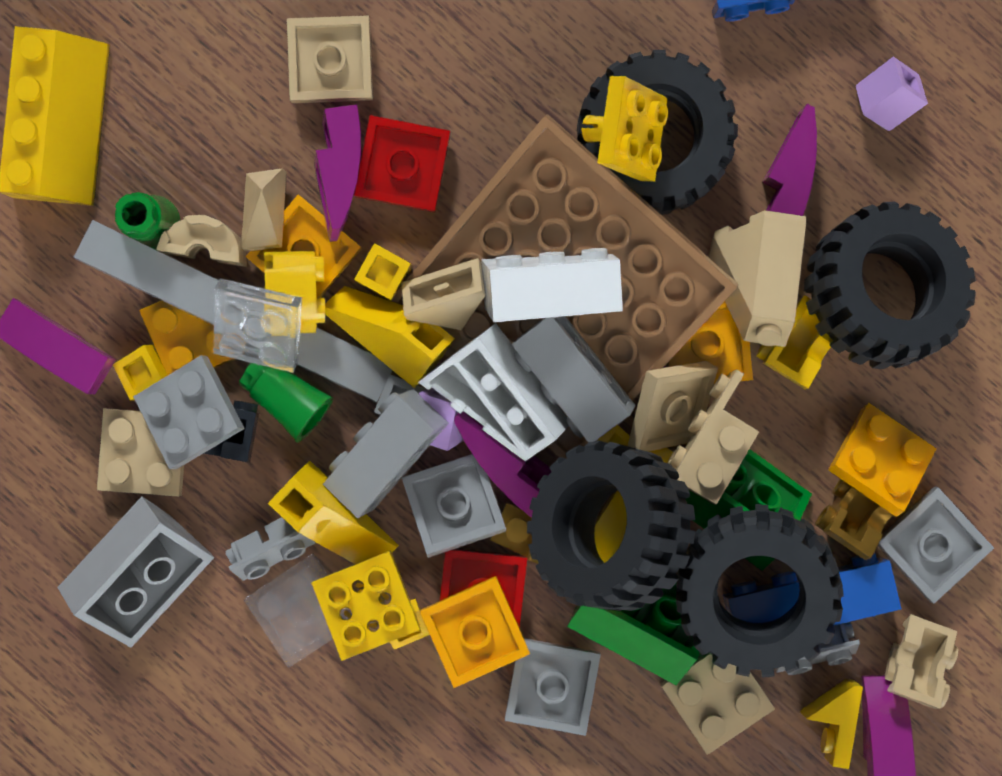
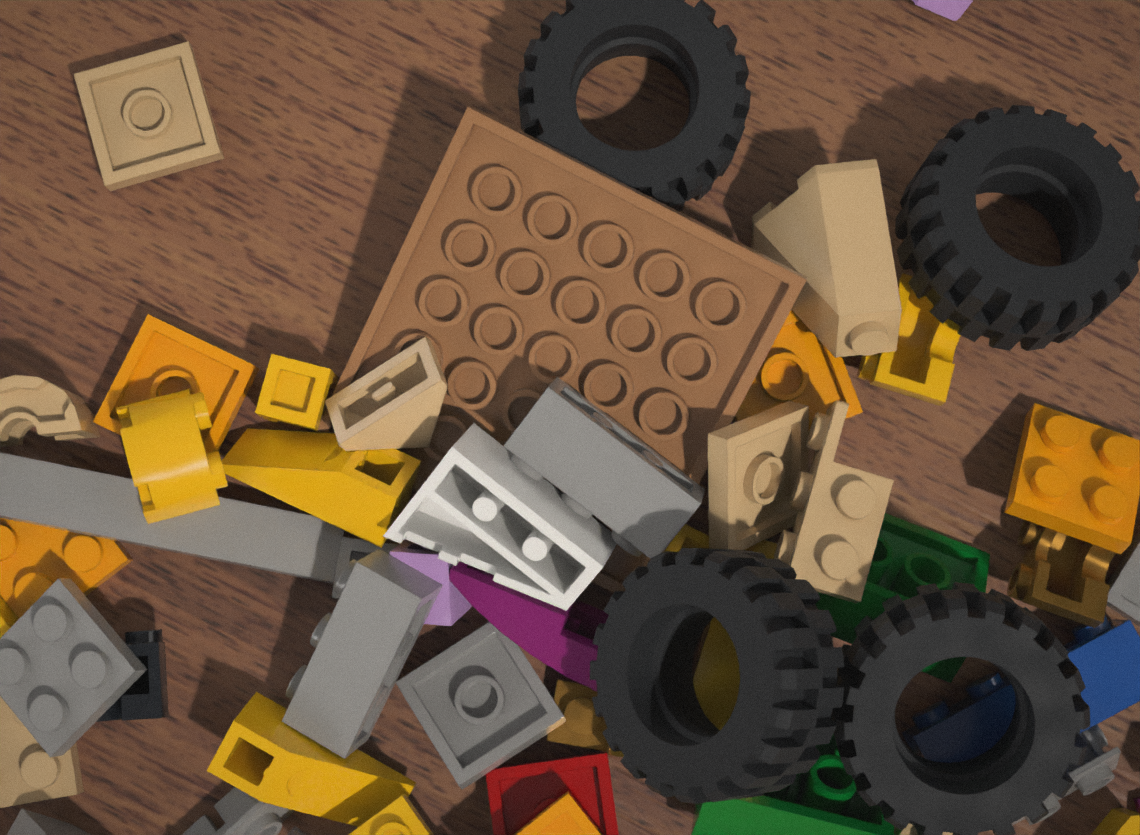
camera: 20 degrees left, 5 degrees down
(257, 325) = (128, 513): clear plate -> none
(263, 210) = (104, 349): tan slope -> none
(286, 398) = (199, 608): green plant -> none
(338, 165) = (195, 259): magenta slope -> none
(402, 164) = (287, 235): red plate -> none
(552, 285) = (540, 344): white wedge -> none
(629, 129) = (592, 94): yellow plate -> none
(794, 166) = (839, 96): magenta slope -> none

